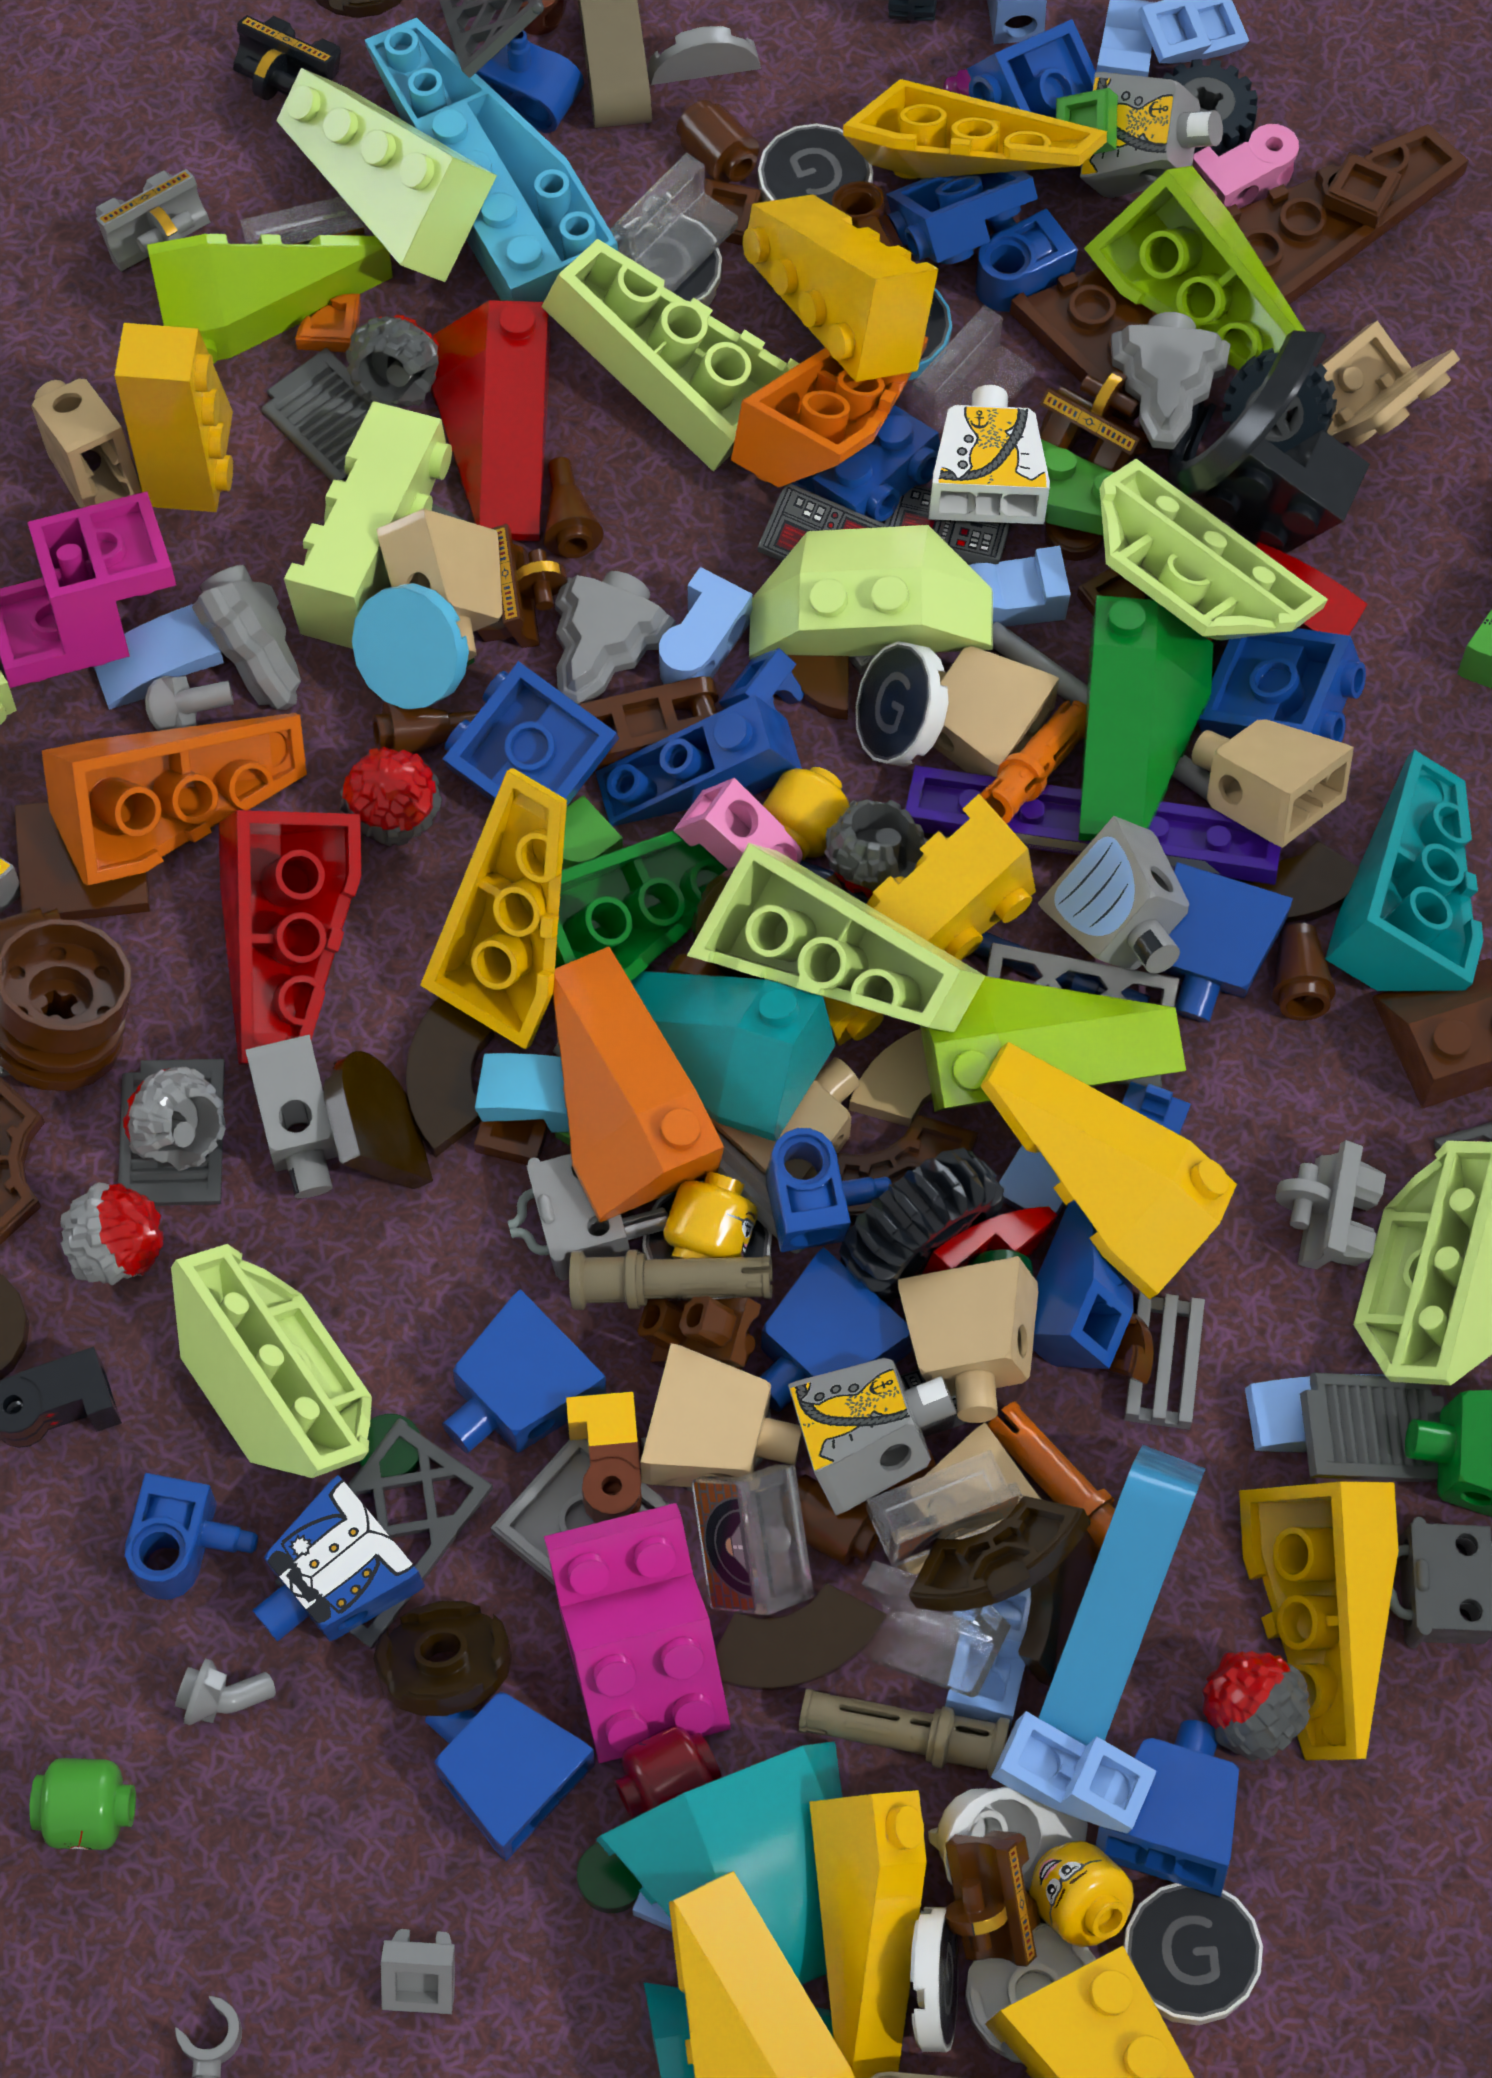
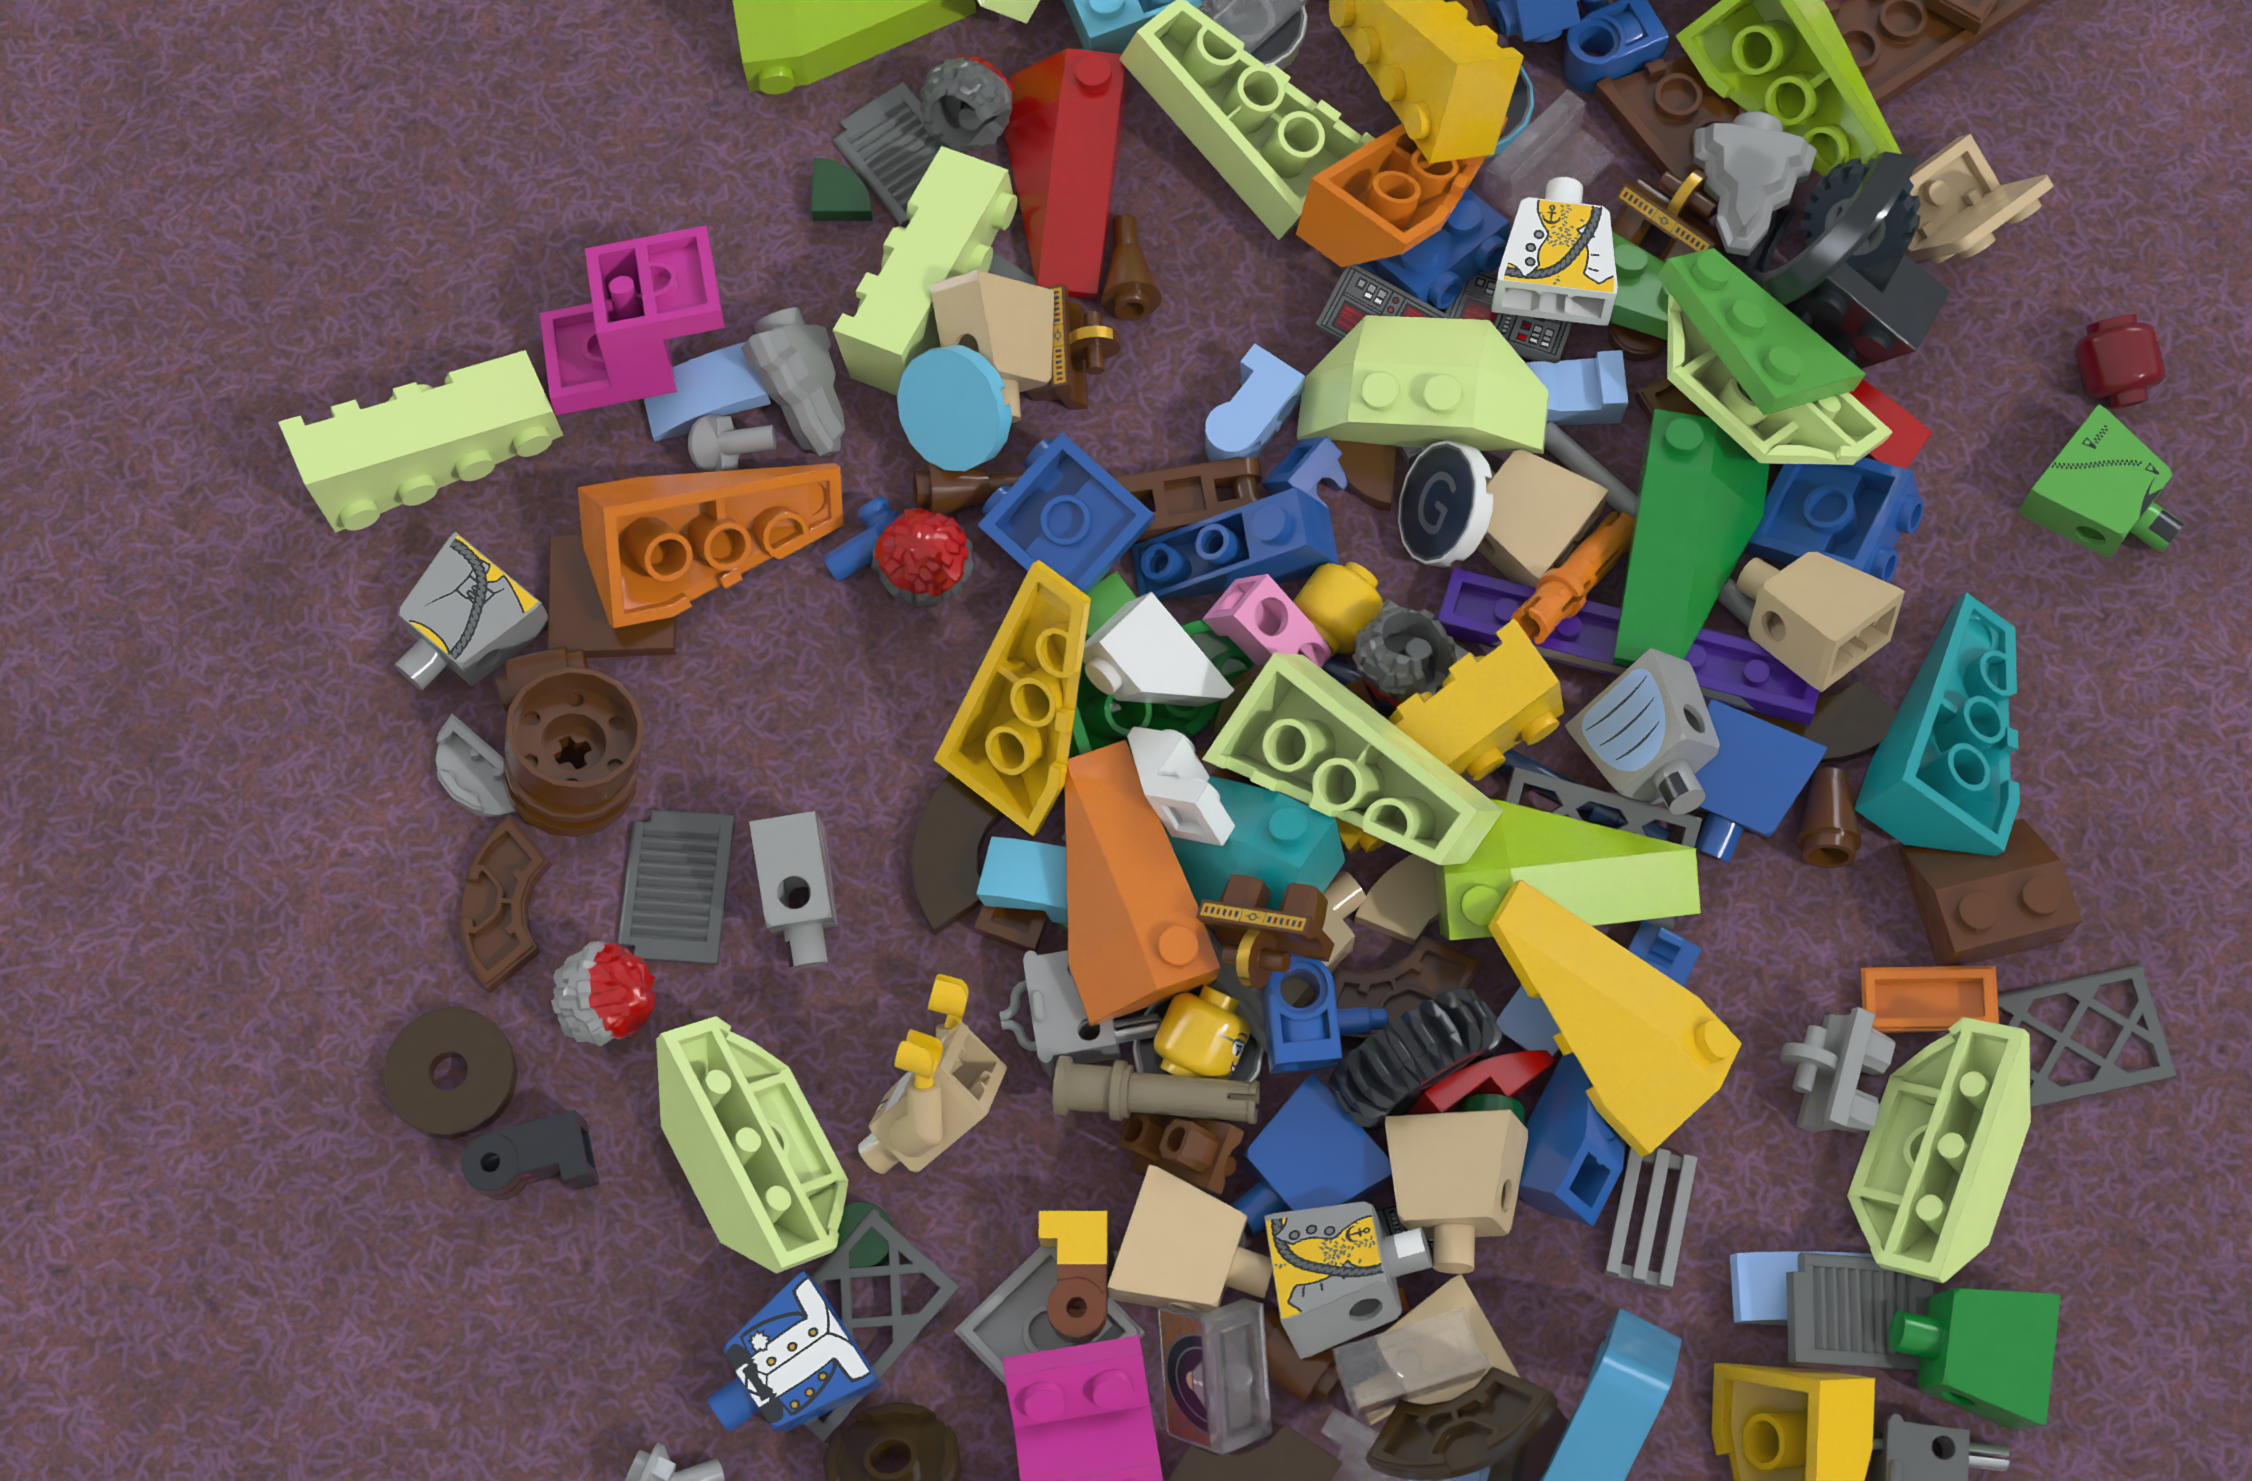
camera: 10 degrees right, 5 degrees up
(76, 421) = (644, 149): tan torso -> none
(174, 416) = (739, 150): yellow wedge -> none
(175, 1118) = (677, 878): light grey piece -> none
(177, 1517) = (644, 1291): blue piece -> none
(272, 458) = (838, 193): none -> dark green tile
(284, 915) = (805, 678): red wedge -> none
(326, 794) = (857, 551): none -> blue arm
(330, 325) = (910, 58): orange tile -> none
(374, 1122) = (874, 900): dark brown tile -> none
(456, 1300) = (943, 1092): none -> tan torso
(519, 1379) = (997, 1181): blue torso -> none
(604, 631) = (1152, 402): light grey rock -> none
(629, 868) = (1151, 659): none -> white slope
(666, 984) = (1178, 786): none -> white slope
(762, 1110) = (1262, 938): none -> reddish brown hips
(1053, 1470) = (1529, 1330): orange pin -> none
(1134, 1353) = (1622, 1209): reddish brown tile -> none
(1186, 517) = (1755, 336): none -> bright green wing
(1412, 1129) = (1928, 997): none -> orange tile

